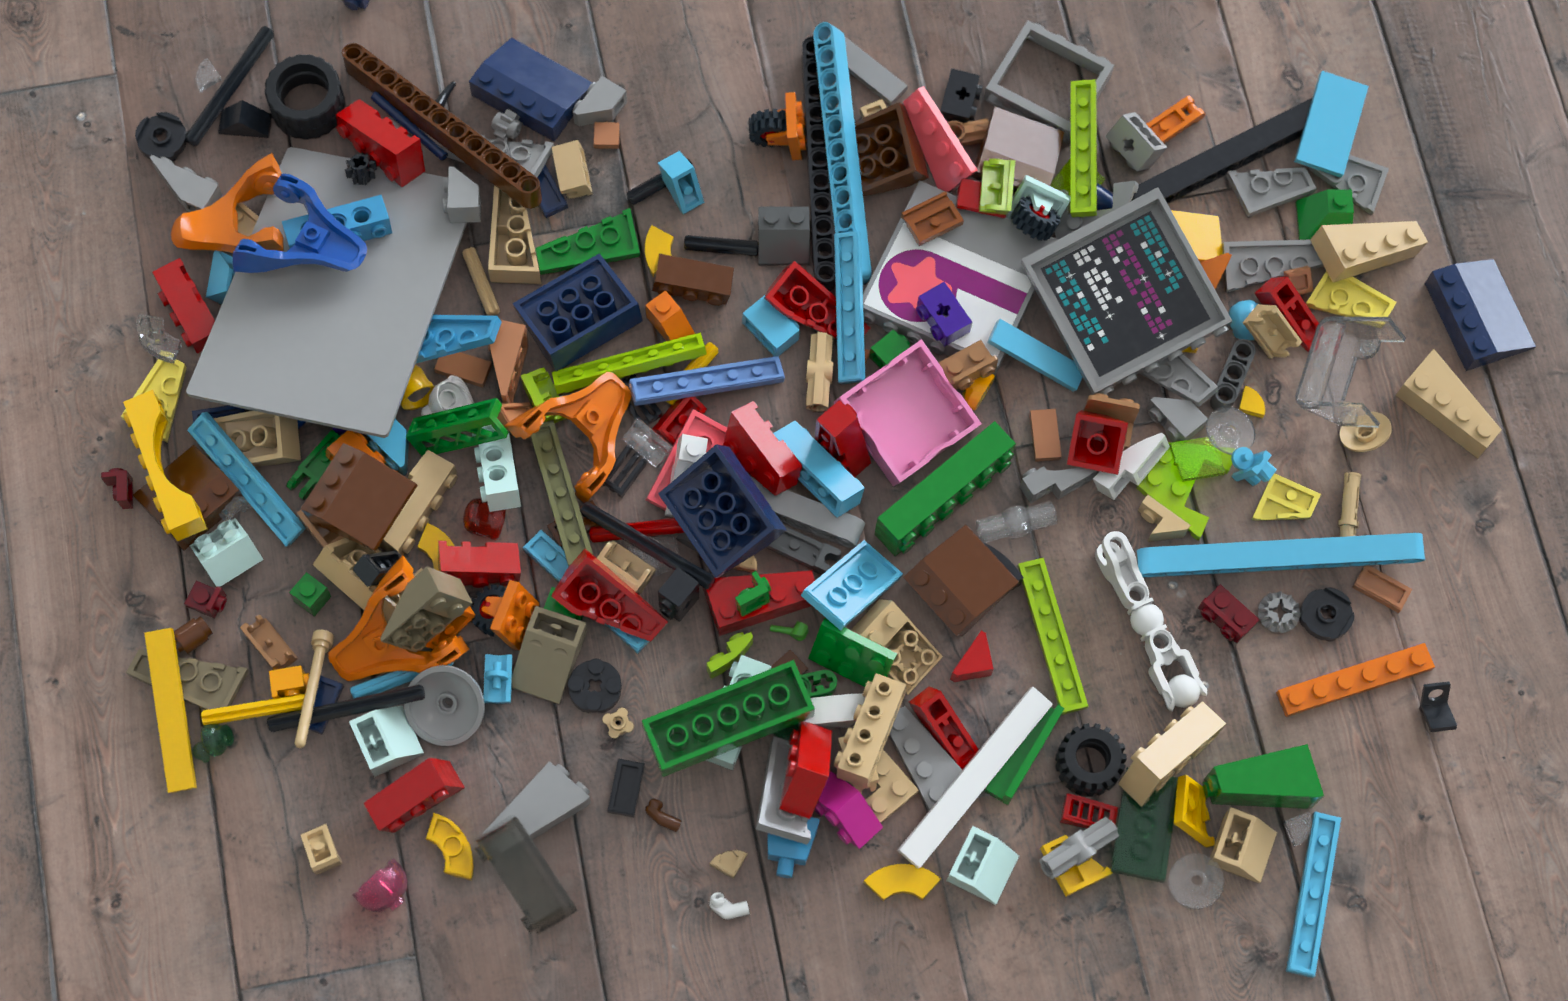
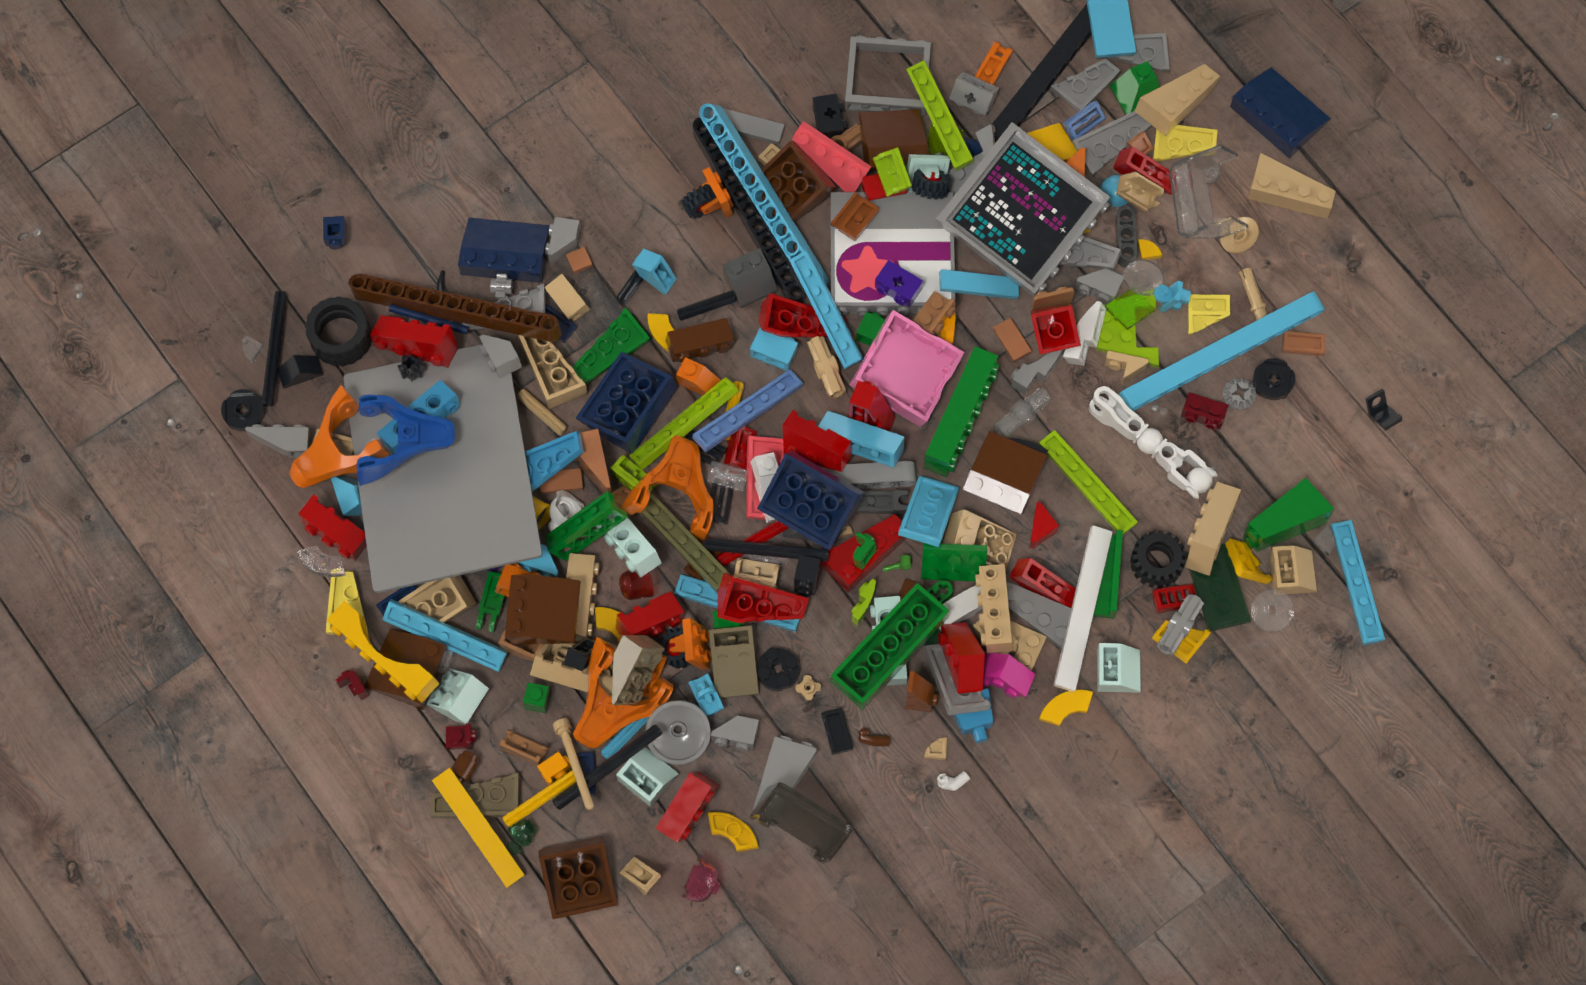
camera: 20 degrees left, 0 degrees up
(251, 817) = (577, 877): none -> reddish brown slope
(513, 736) = (737, 732): none -> light grey slope
(737, 788) = (920, 694): none -> dark orange slope
(1227, 229) = (1070, 128): none -> medium blue tile
(1355, 679) = (1315, 417): orange plate -> none

